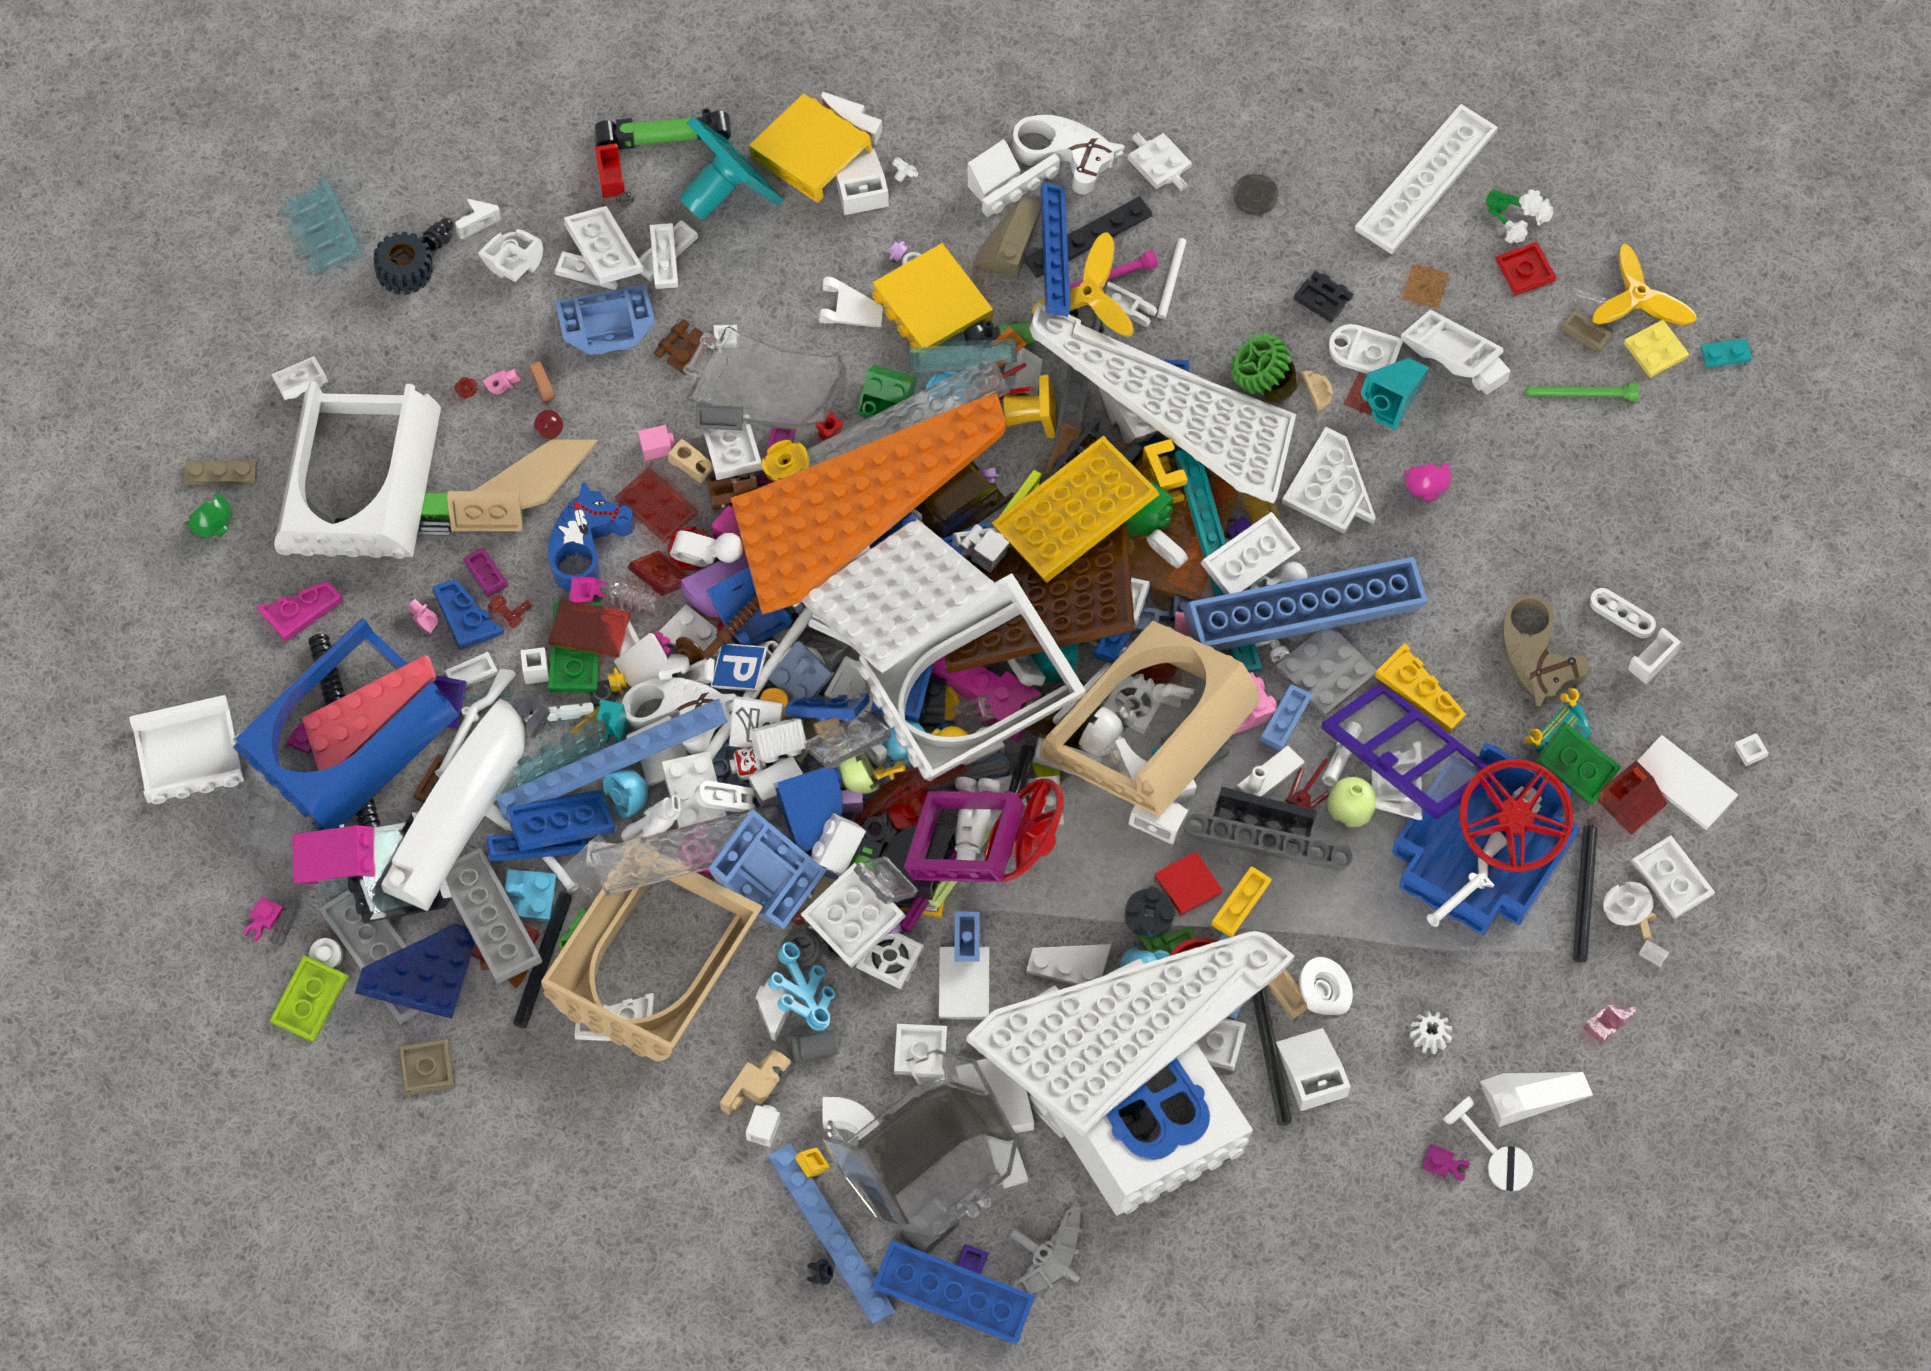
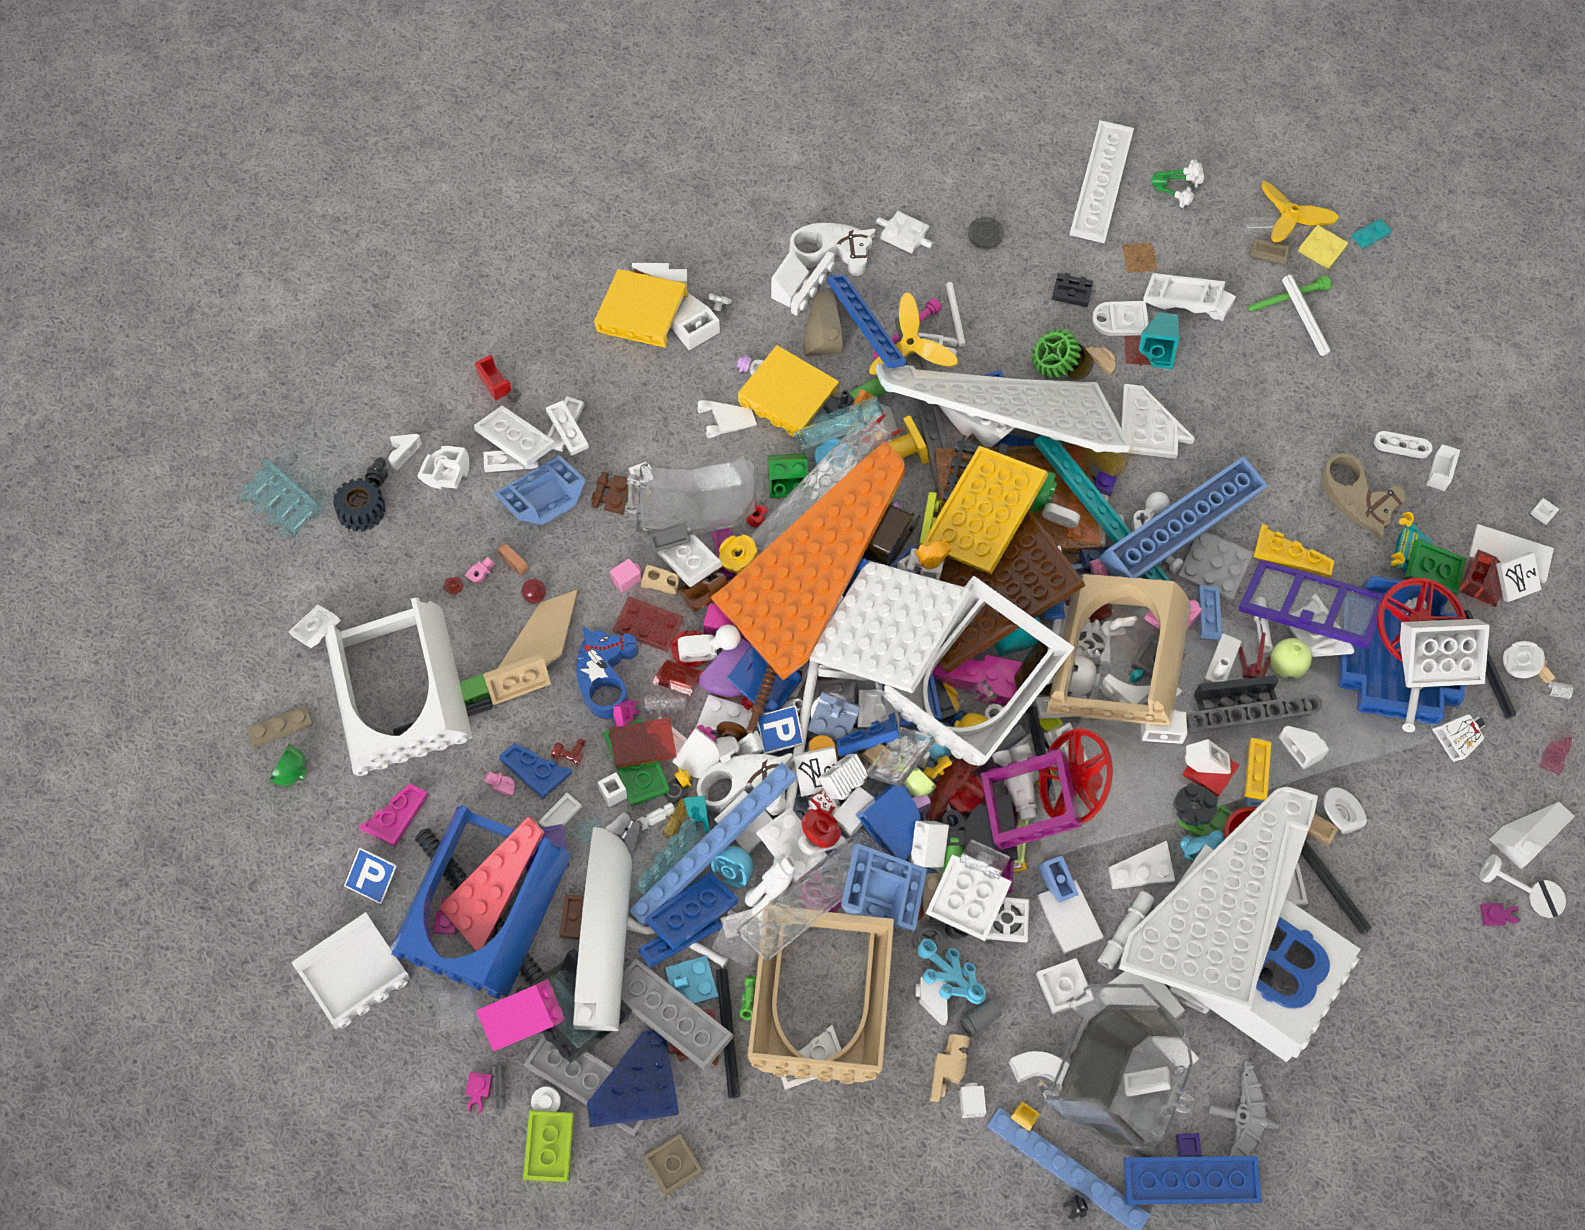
camera: 25 degrees left, 0 degrees up
(247, 660) = (370, 875): none -> piece
(470, 715) = (577, 851): white piece -> none
(485, 572) = (535, 728): magenta plate -> none
(629, 134) = (494, 344): piece -> none
(722, 175) = (585, 351): teal piece -> none
(728, 783) = (821, 827): none -> red tile
(953, 1175) = (1147, 1081): none -> white tile
(990, 537) = (933, 555): none -> light orange hair
(1027, 670) = (1004, 650): white hinge -> none
(1084, 237) = (882, 301): black plate -> none
(1155, 468) = (1025, 454): yellow panel -> none
(1186, 867) = (1207, 758): none -> white slope
(1250, 555) = (1125, 498): white plate -> none
(1309, 898) = (1303, 745): none -> white slope
(1313, 1069) = (1367, 878): white slope -> none
(1428, 480) = (1219, 397): dark pink cylinder -> none
(1433, 1023) = (1443, 820): white gear -> none
(1504, 956) = (1460, 736): none -> white torso
(1520, 855) = (1444, 652): none -> white slope
(1525, 268) = (1203, 221): red tile -> none
(1587, 422) = (1306, 315): none -> white axle
(1672, 810) = (1518, 576): none -> white tile
(1672, 877) = (1541, 627): white tile -> none

